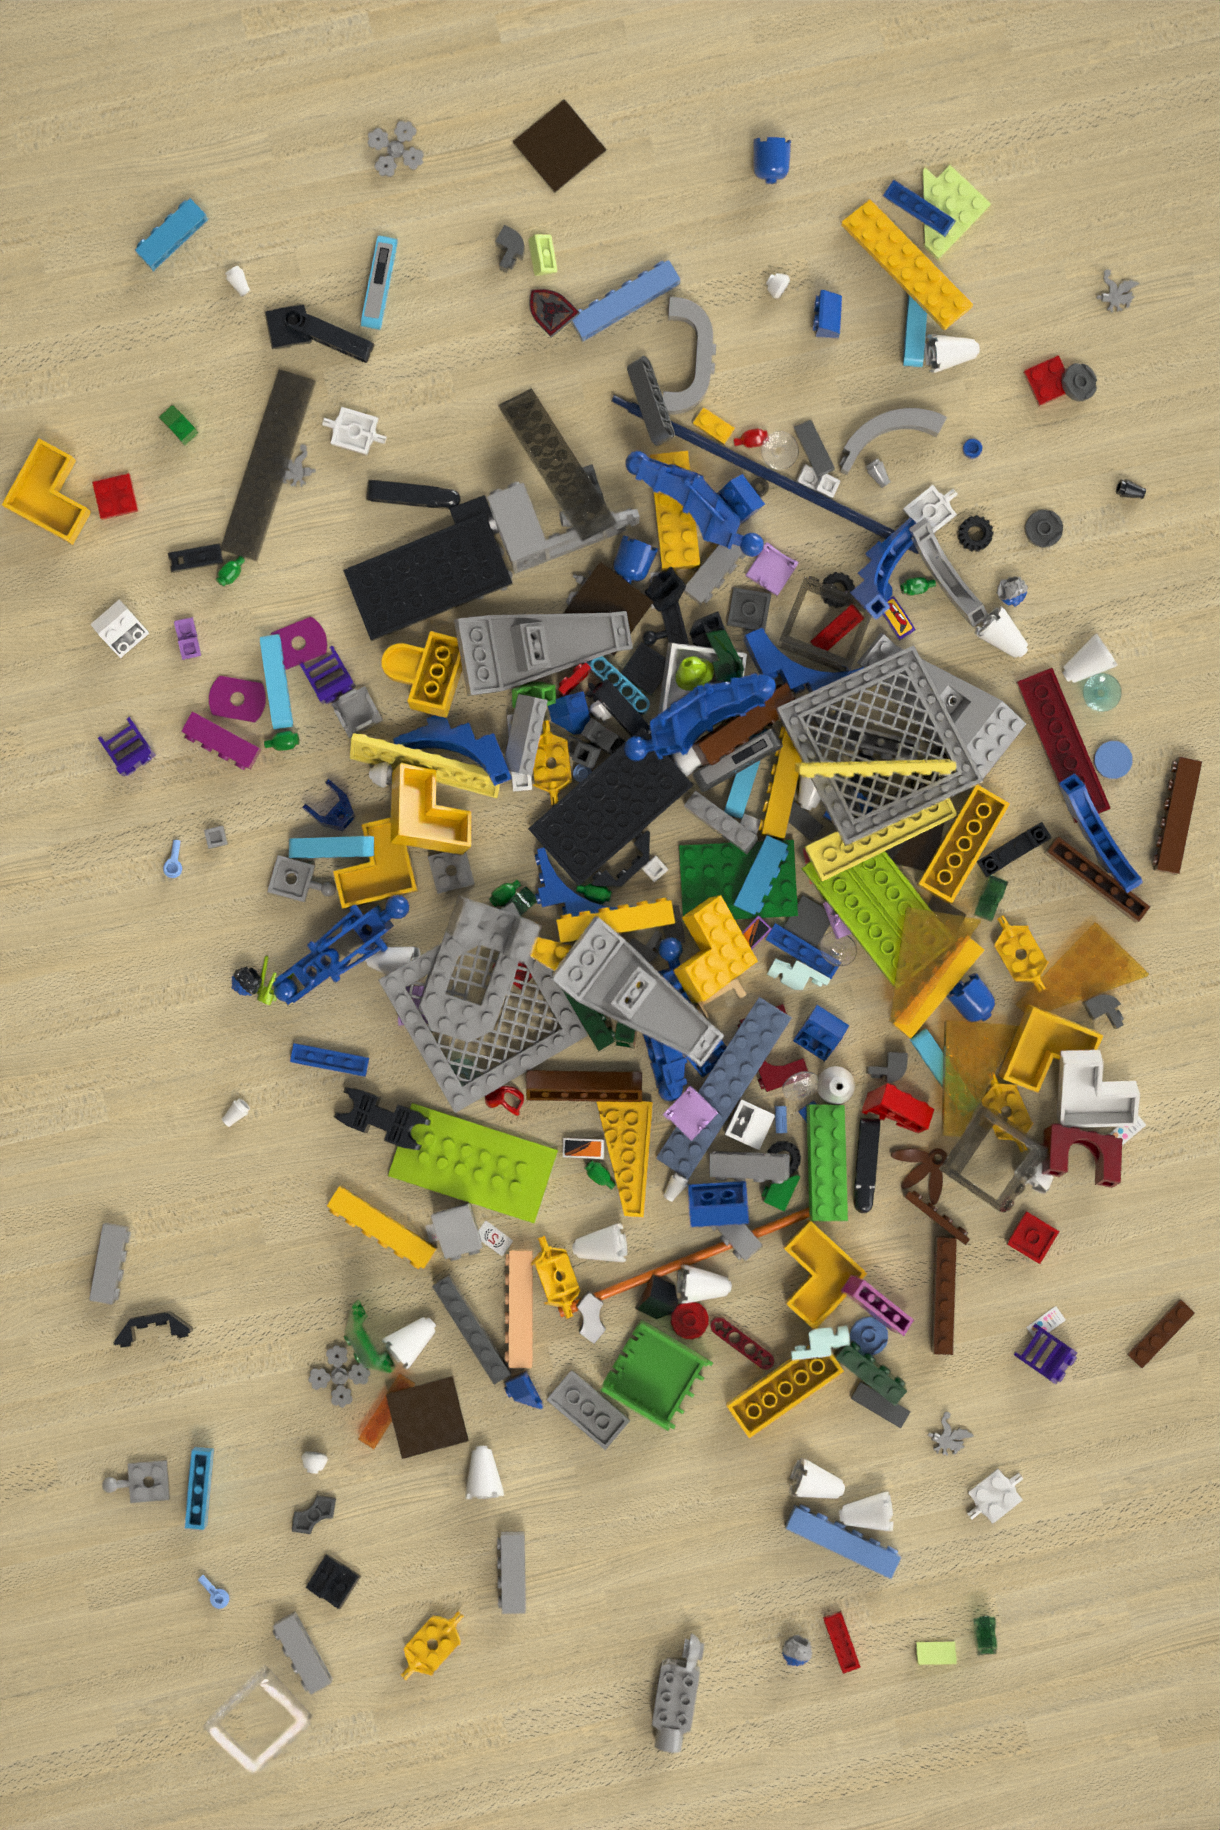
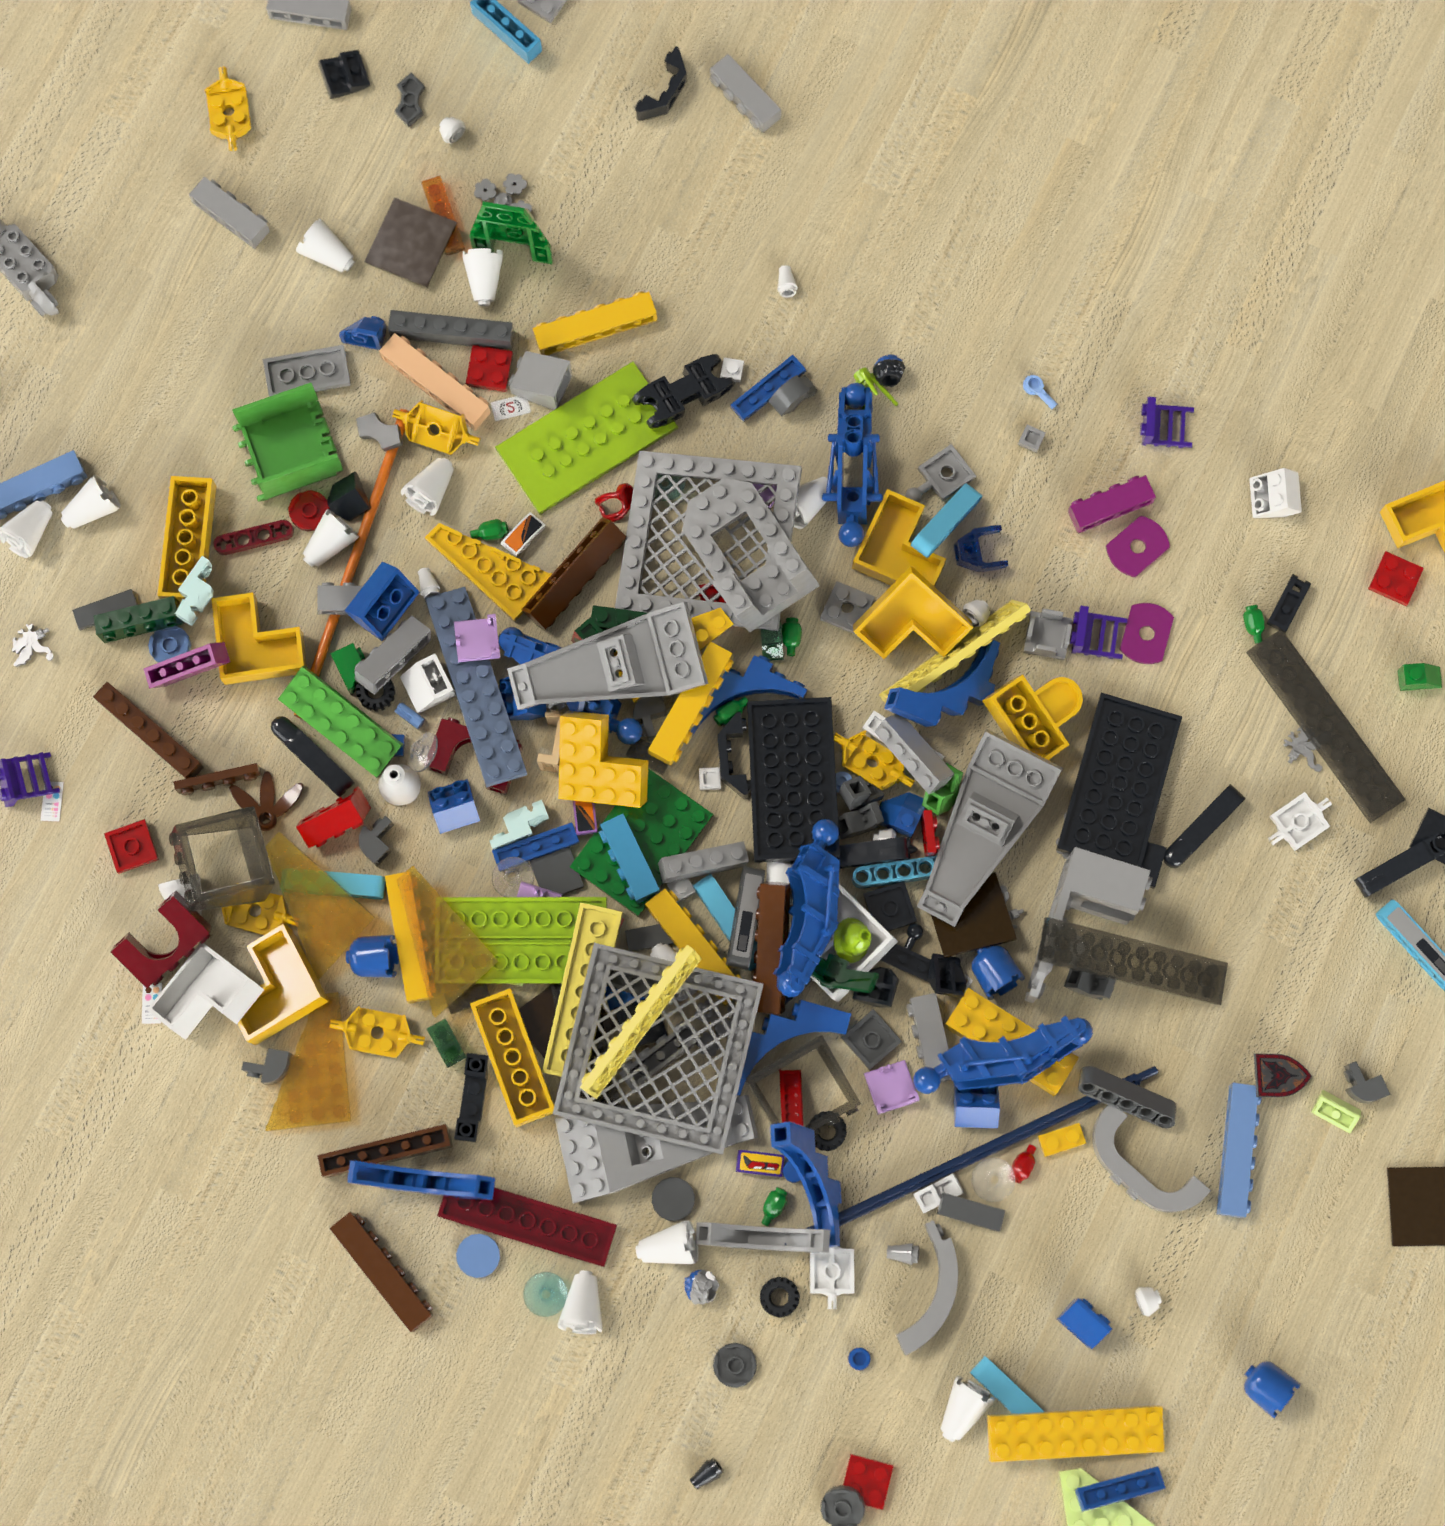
camera: 130 degrees right, 10 degrees down
(187, 638) = (1223, 545): medium lavender slope -> none
(276, 682) = (1127, 587): medium azure beam -> none
(283, 741) = (1070, 554): green plant -> none
(321, 1036) = (791, 394): none -> dark grey brick
(336, 1098) = (732, 368): none -> white plate
(477, 1278) = (489, 368): none -> red plate
(760, 481) = (974, 1143): clear smoke plate -> none
(968, 658) = (673, 1199): none -> dark grey tile

